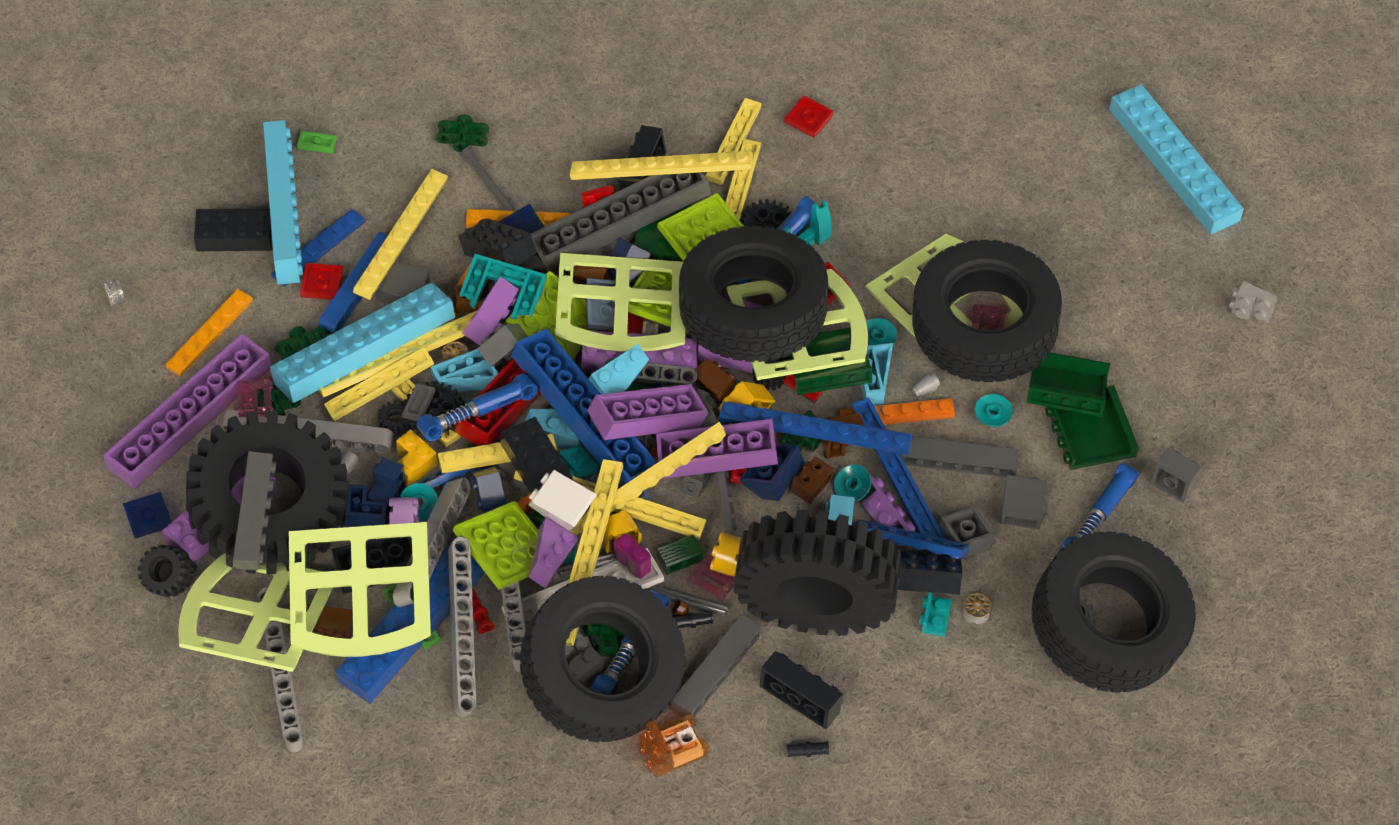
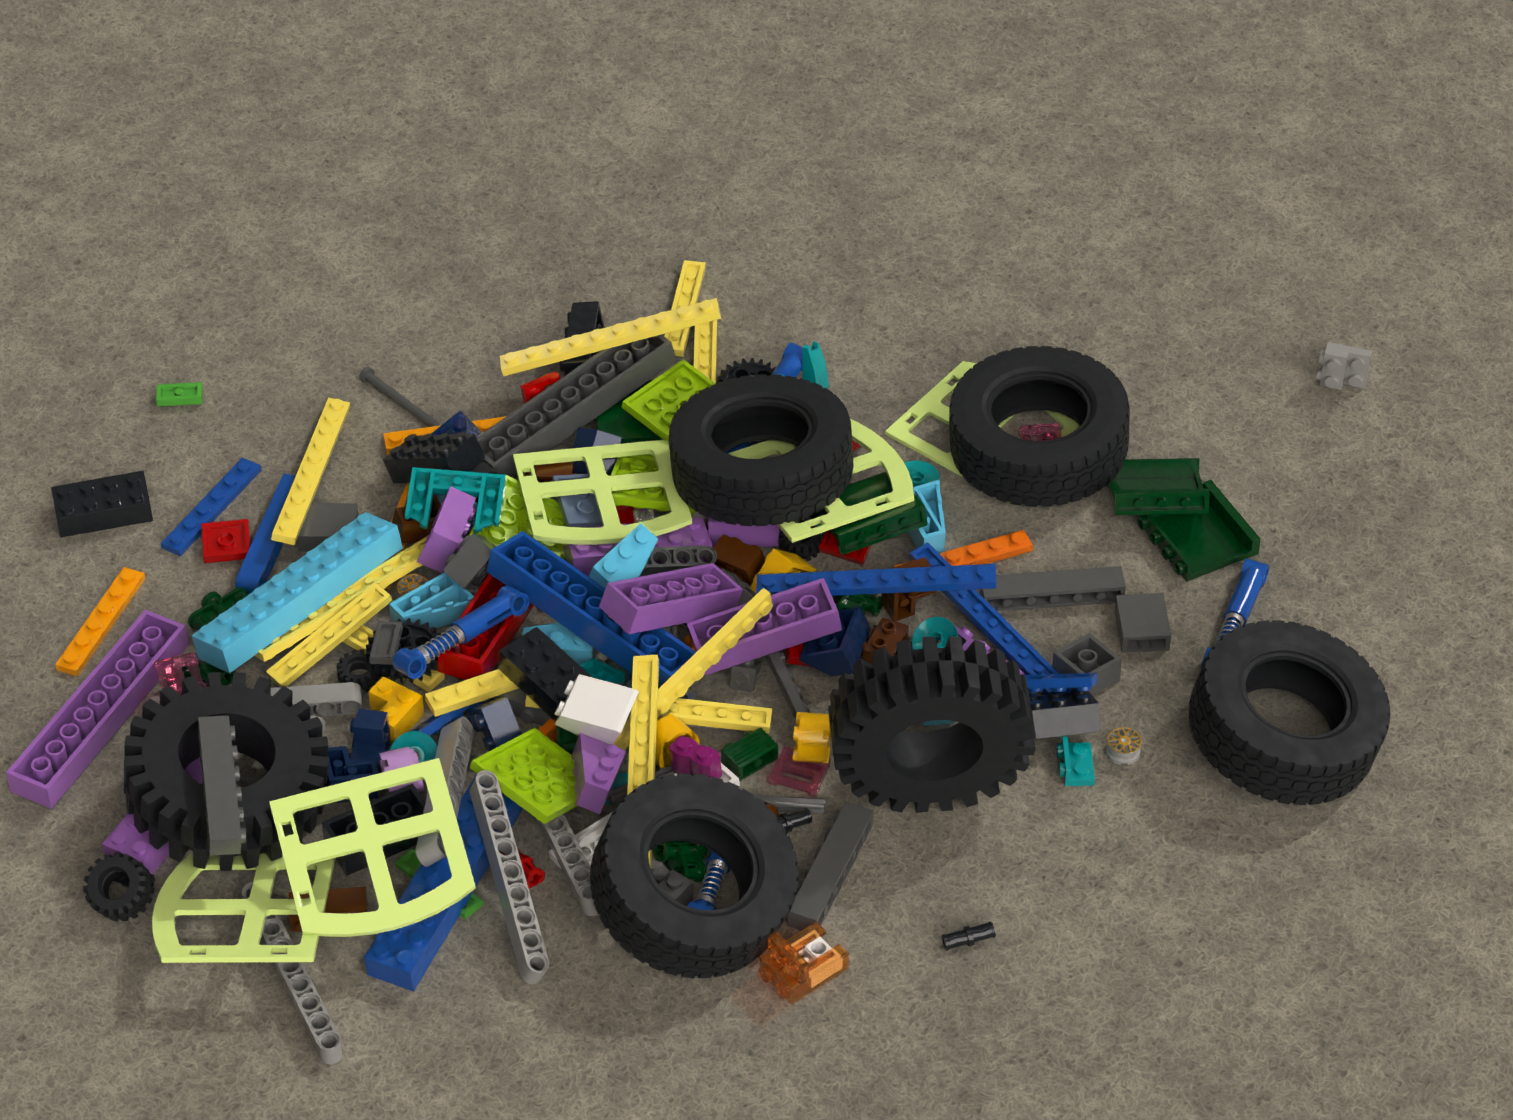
camera: 10 degrees left, 10 degrees down
(147, 515) = (76, 833): clear blue plate -> none
(282, 202) = (157, 461): medium azure brick -> none
(462, 133) = (365, 354): dark green axle -> none
(801, 689) = (941, 870): black brick -> none
(808, 116) = (765, 267): red plate -> none
(925, 385) = (989, 521): light grey cone -> none
(997, 405) = (1077, 533): teal dish -> none
(1175, 474) = (1313, 559): dark grey brick -> none
(1176, 159) = (1207, 238): medium azure brick -> none

